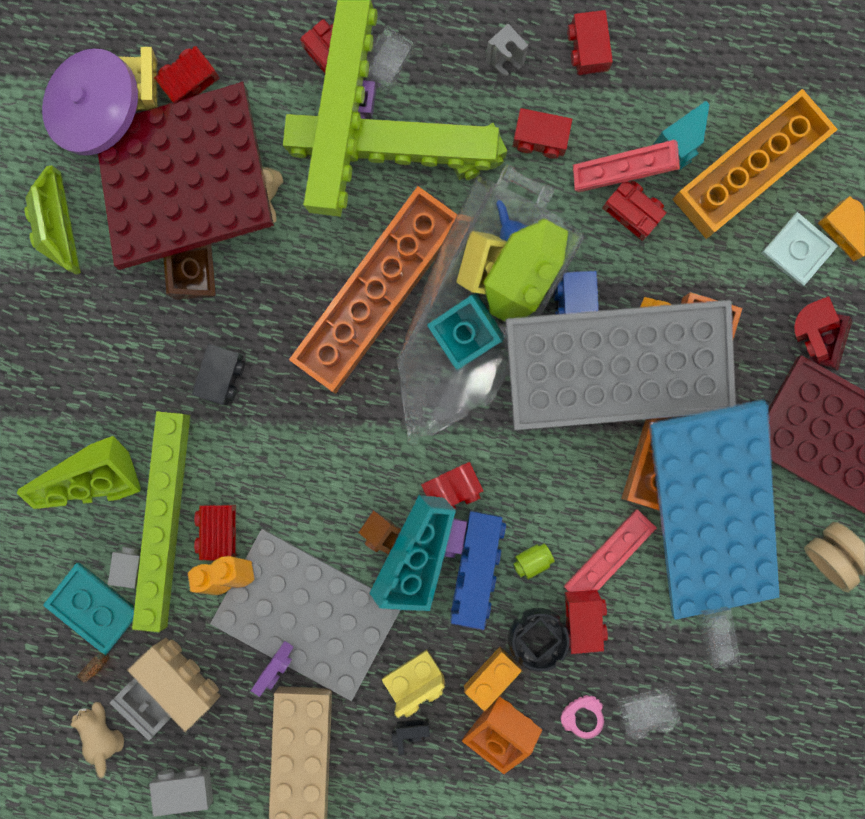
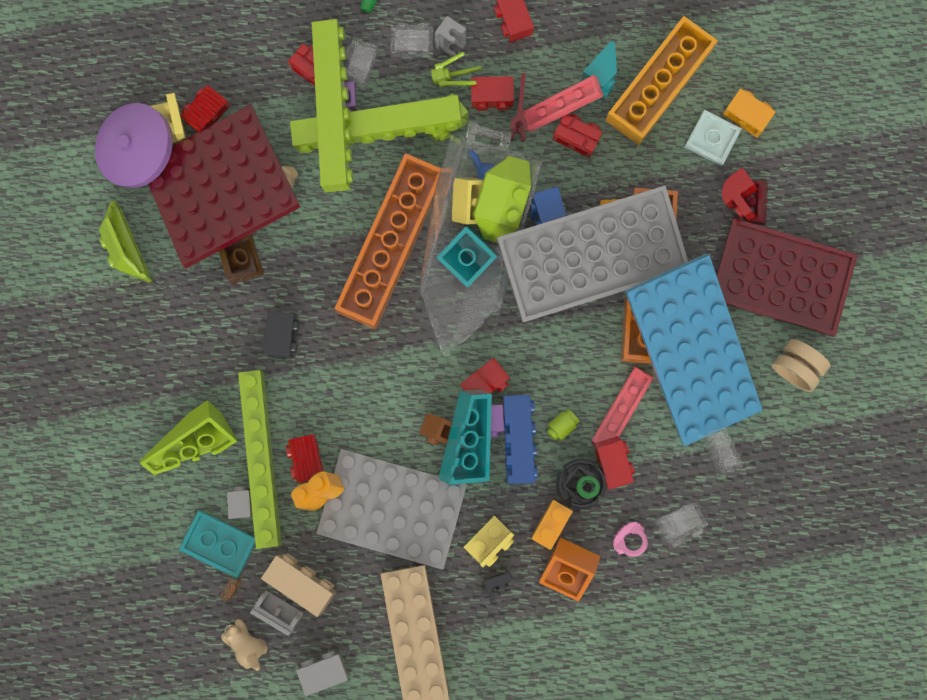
camera: 15 degrees left, 5 degrees down
(269, 675) = (378, 549): medium lavender plate -> none
(458, 45) = (412, 40): none -> clear brick
(485, 97) = (441, 74): none -> lime plant
(549, 661) = (588, 480): none -> green cone
(562, 178) = (519, 119): none -> dark red flag

